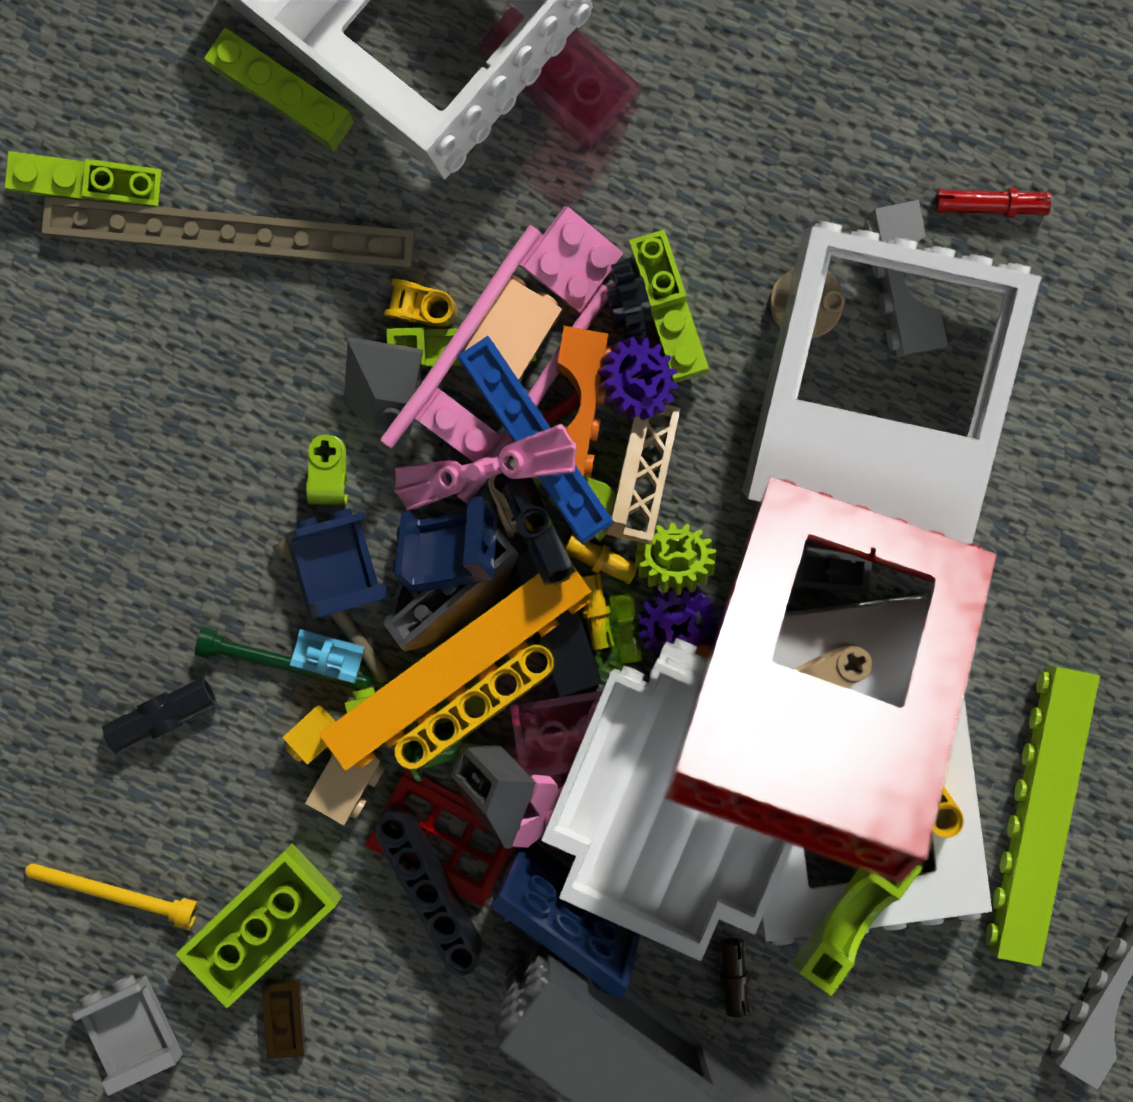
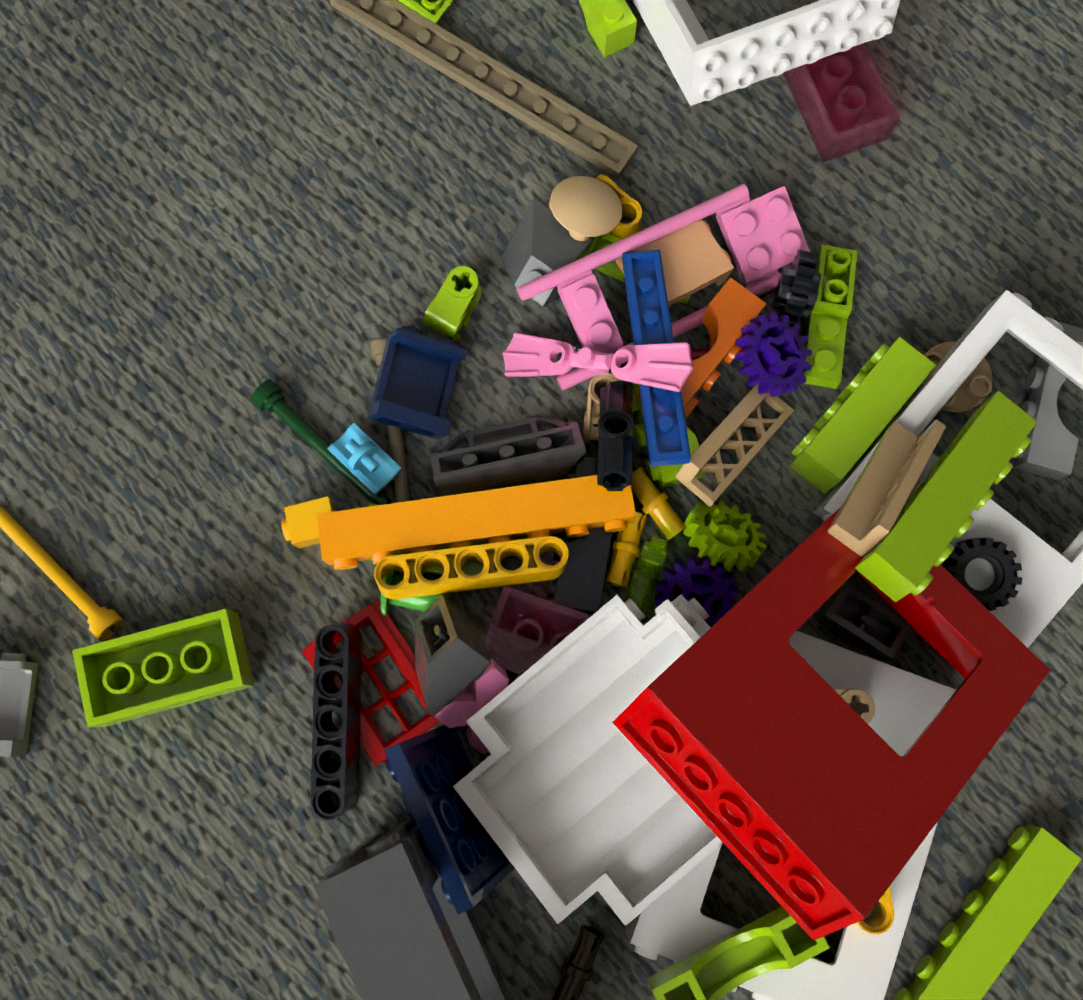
camera: 30 degrees right, 10 degrees down
(159, 715) = (188, 435): black piece -> none
(283, 1018) = (135, 771): dark brown plate -> none
(340, 791) = (312, 583): tan brick -> none
(399, 325) = (585, 207): none -> tan dish
(447, 548) = (523, 418): dark blue panel -> none
(741, 390) = (860, 414): none -> lime brick
(788, 468) = (884, 486): none -> tan fence
(845, 451) = (947, 497): none -> lime brick
(902, 468) = (1002, 562): none -> black tyre

